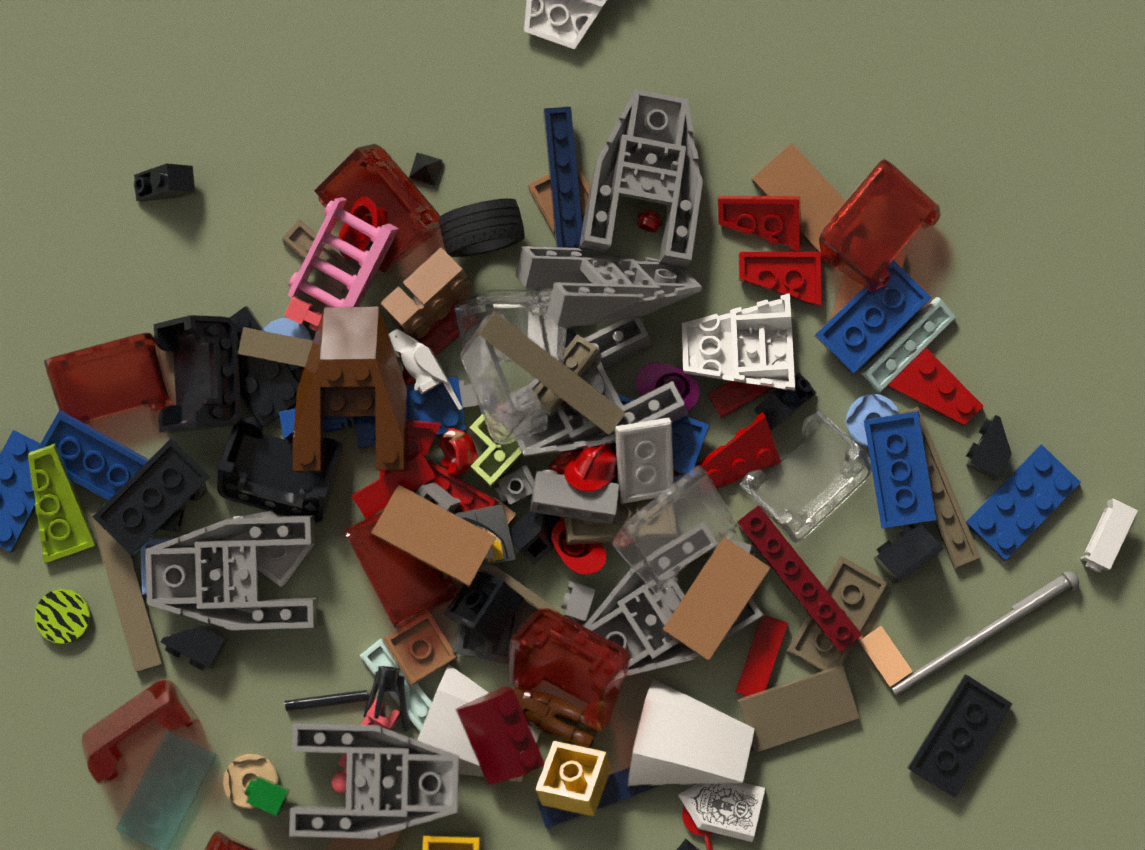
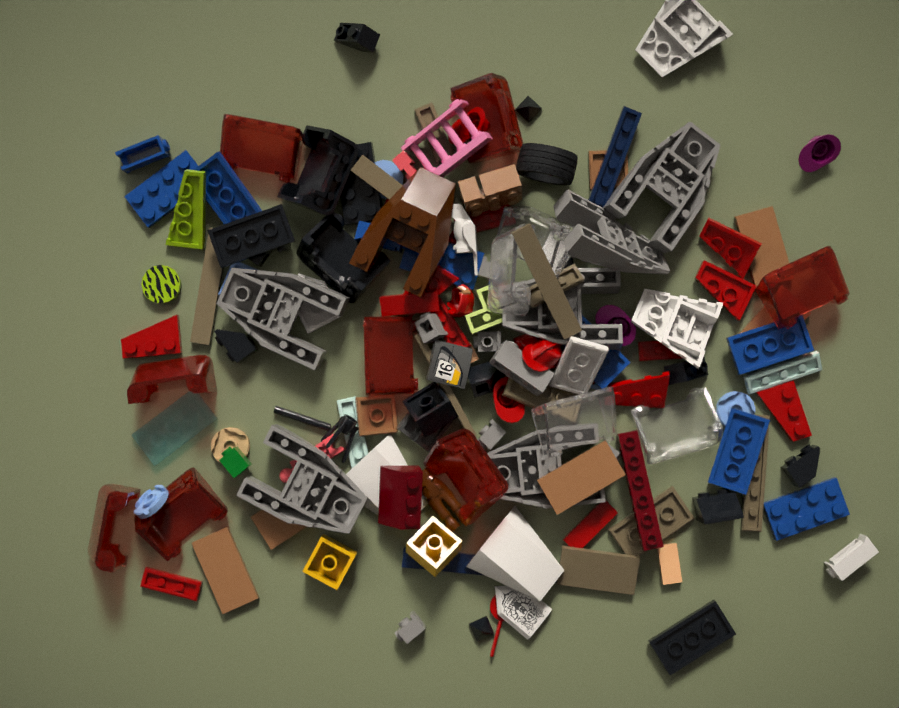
camera: 30 degrees right, 5 degrees up
(89, 692) = (155, 340): none -> red wing
(433, 535) = (419, 349): medium nougat tile -> none
(648, 221) = (655, 212): red plate -> none
(816, 49) = (819, 152): none -> magenta piece
(1022, 608) = (769, 576): light grey bar -> none

